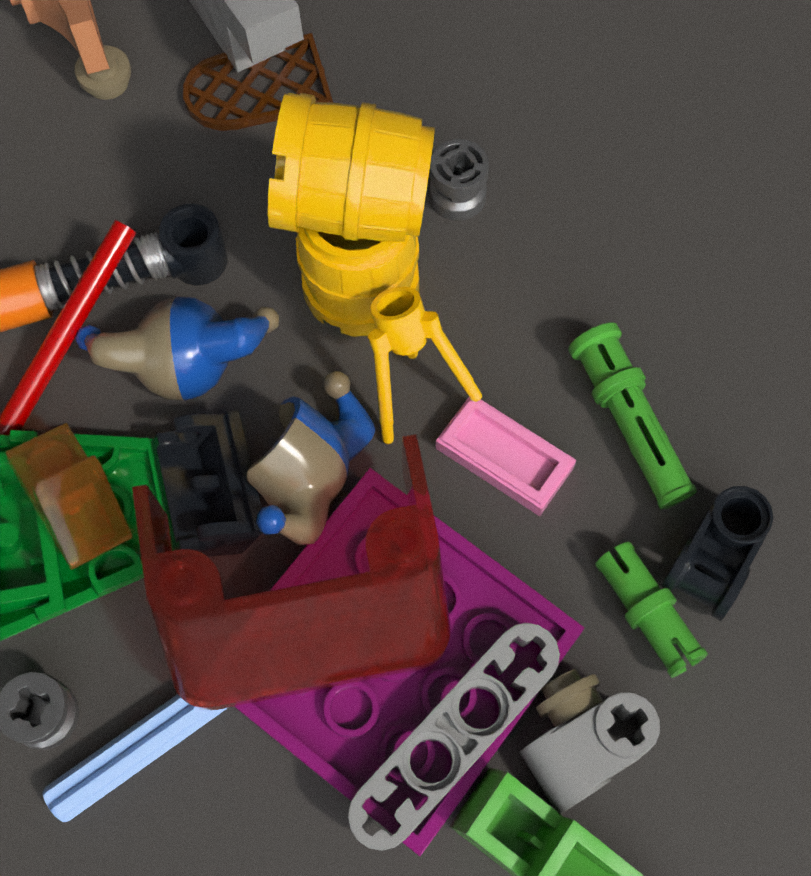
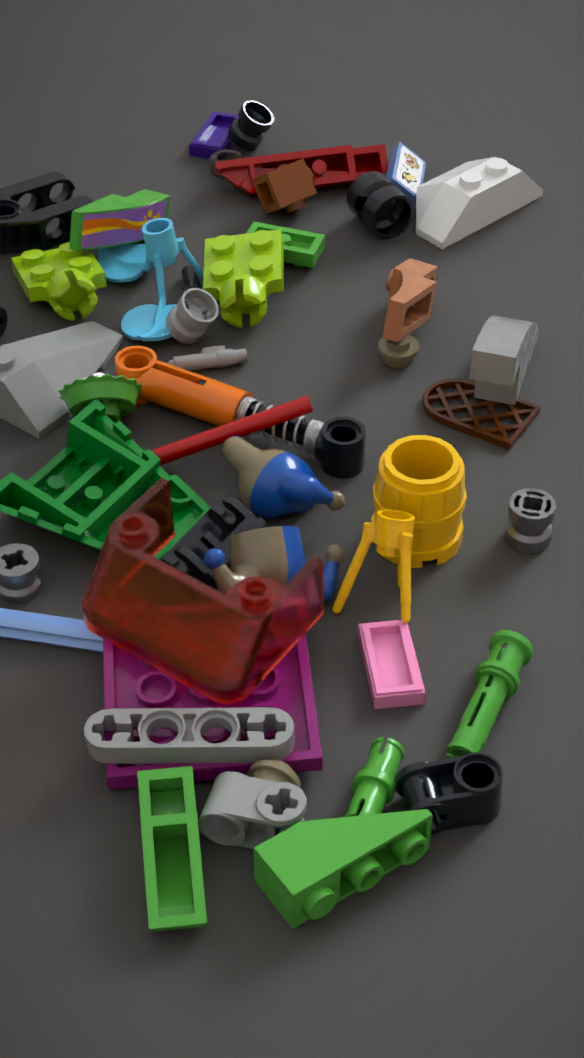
camera: 45 degrees right, 25 degrees down
(70, 495) = (133, 478): clear orange slope -> none
(349, 170) = (428, 420): yellow piece -> none
(708, 739) = (332, 858): none -> bright green slope

